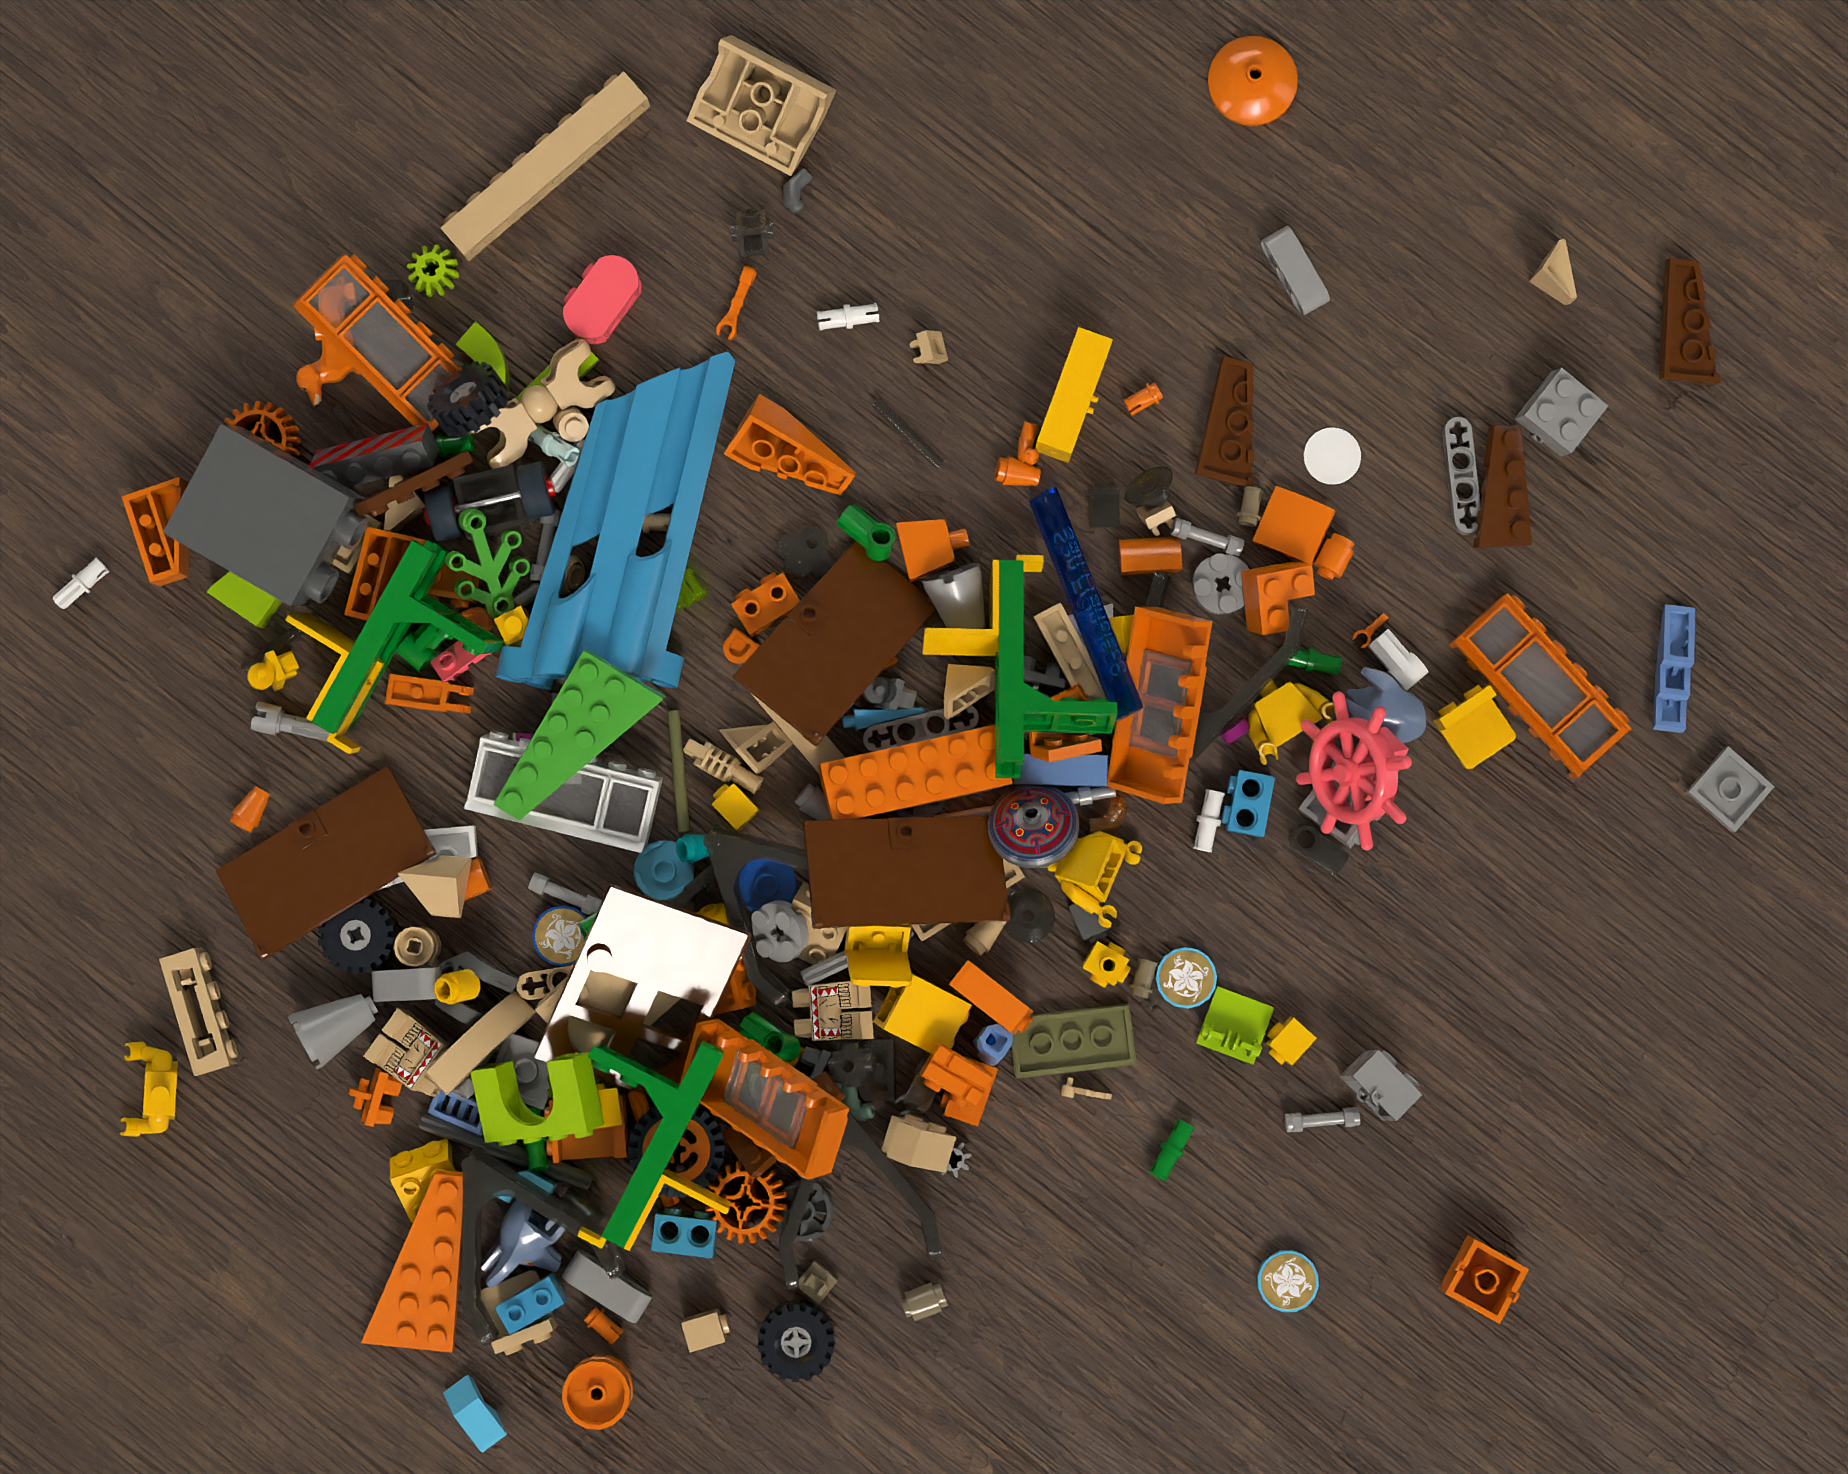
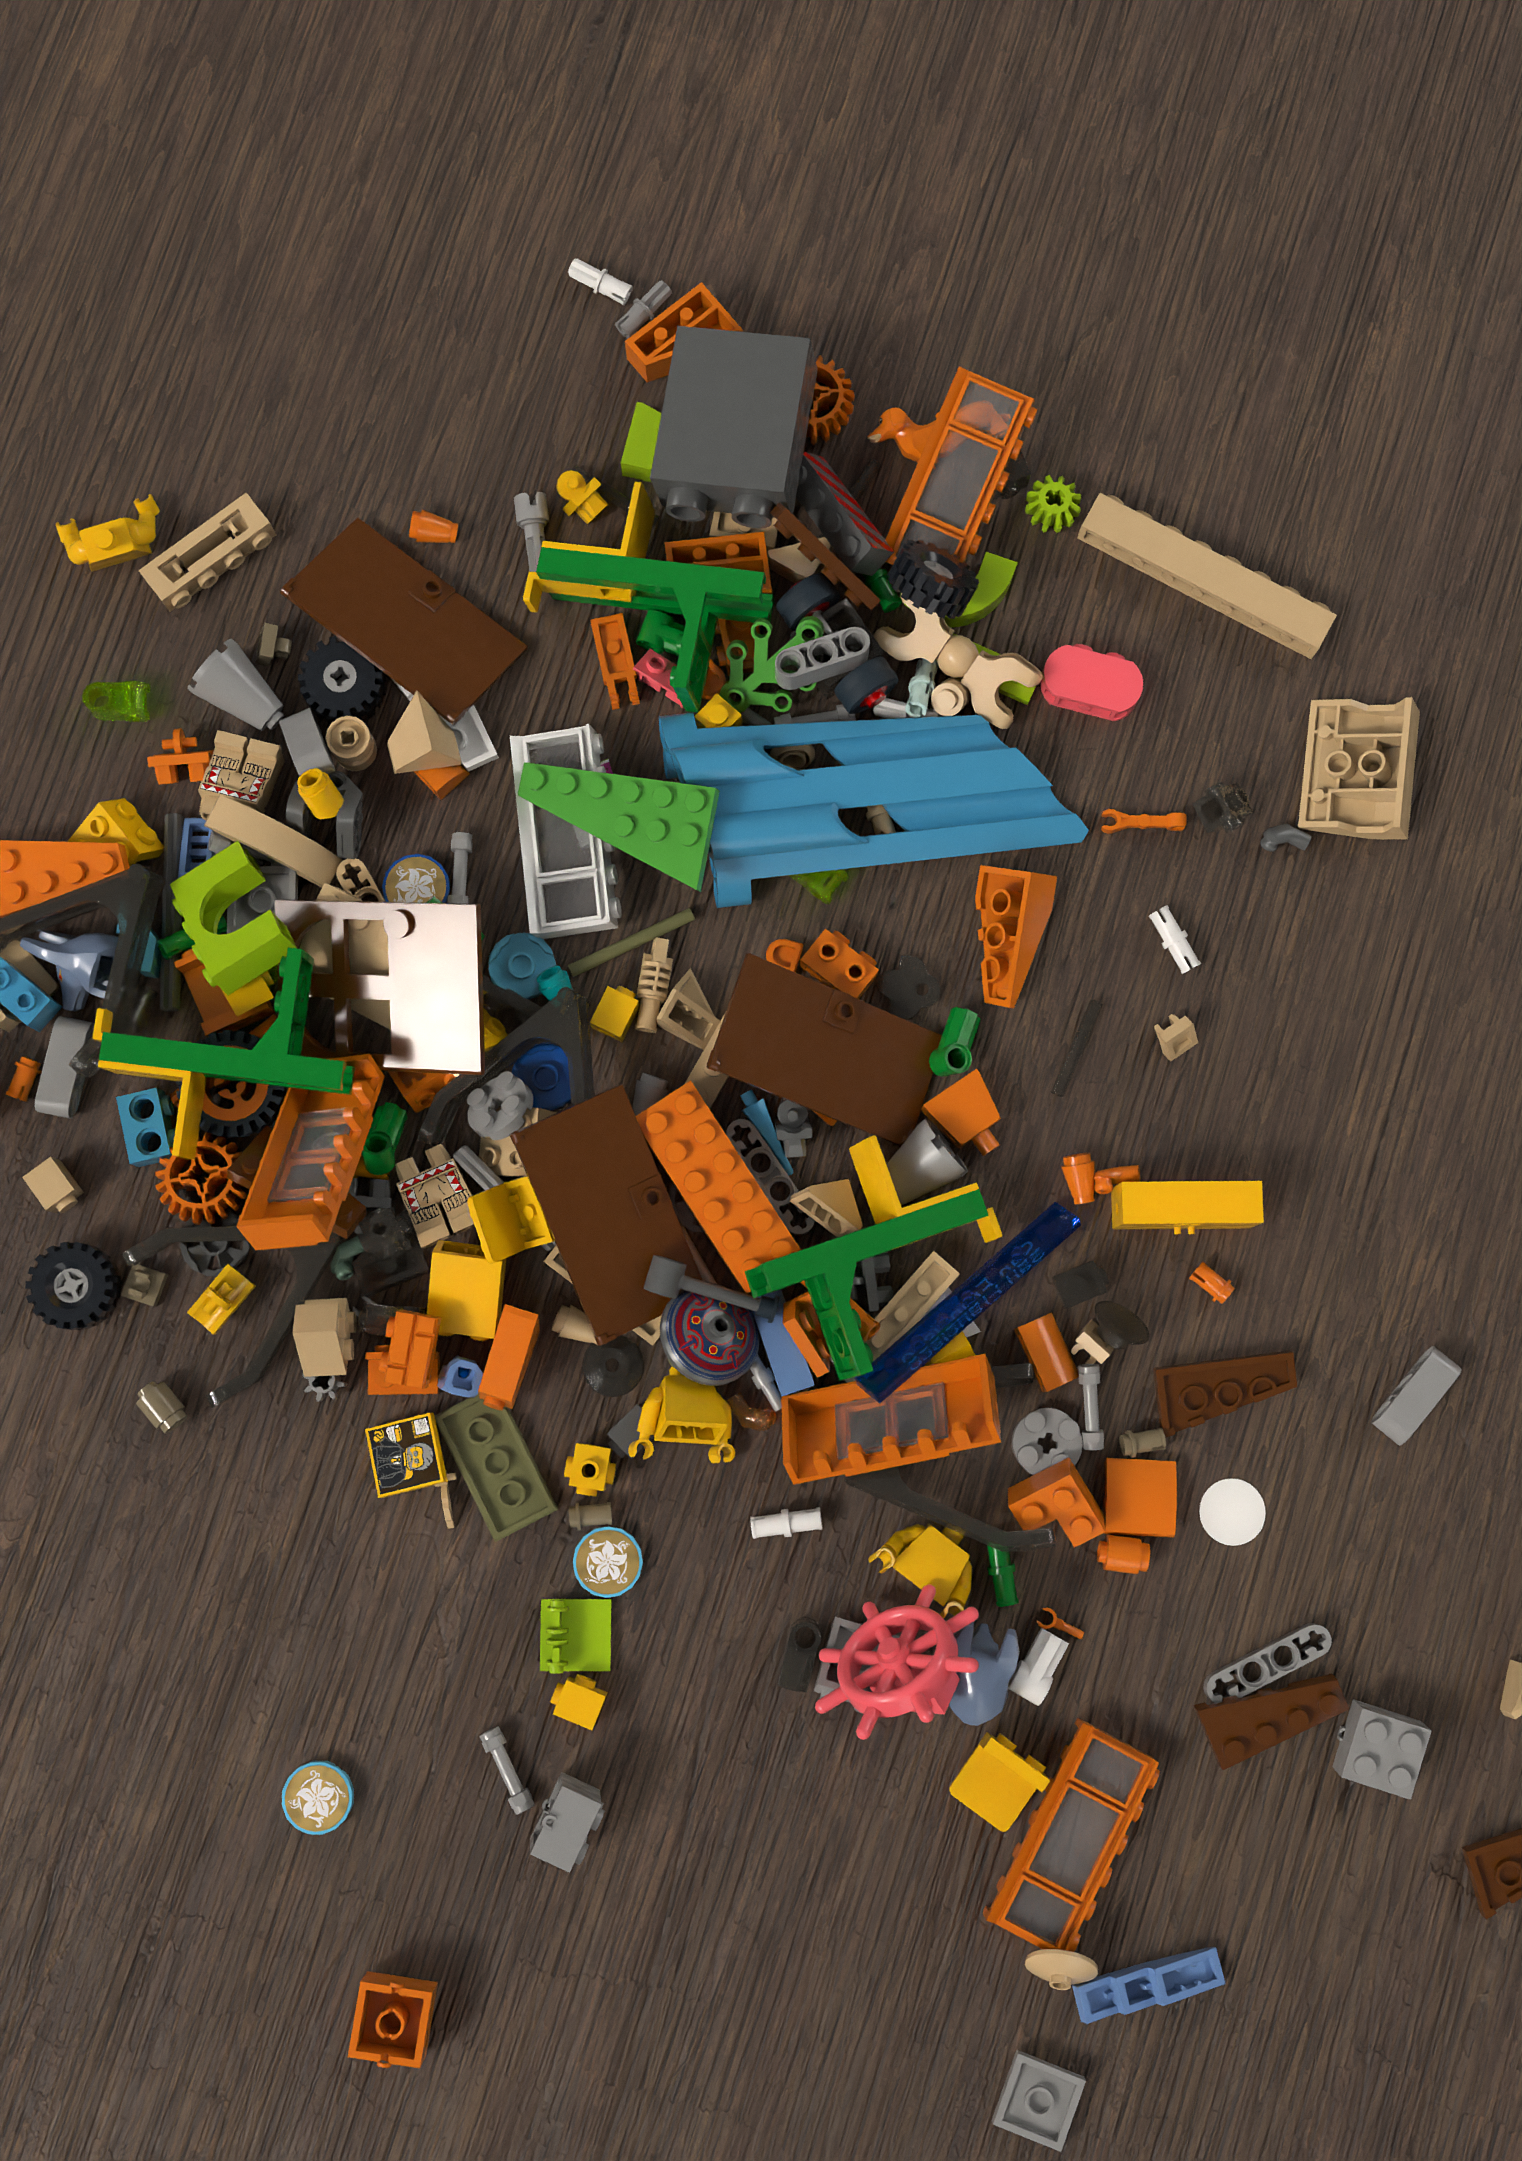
camera: 65 degrees right, 5 degrees down
(121, 555) = (643, 309): none -> light grey axle
(302, 986) = (271, 646): none -> dark tan tile
(303, 1131) = (125, 700): none -> clear neon green piece
(492, 507) = (833, 646): none -> light grey beam
(854, 1220) = (221, 1299): none -> yellow hips
(974, 841) = (668, 1277): none -> dark grey piece
(1039, 1112) = (406, 1455): none -> tile
(1171, 1150) = (415, 1615): green pin -> none
(1235, 730) = (894, 1515): magenta tile -> none
(1256, 805) = (822, 1569): dark azure brick -> none
(1636, 732) = (1061, 1967): none -> tan dish

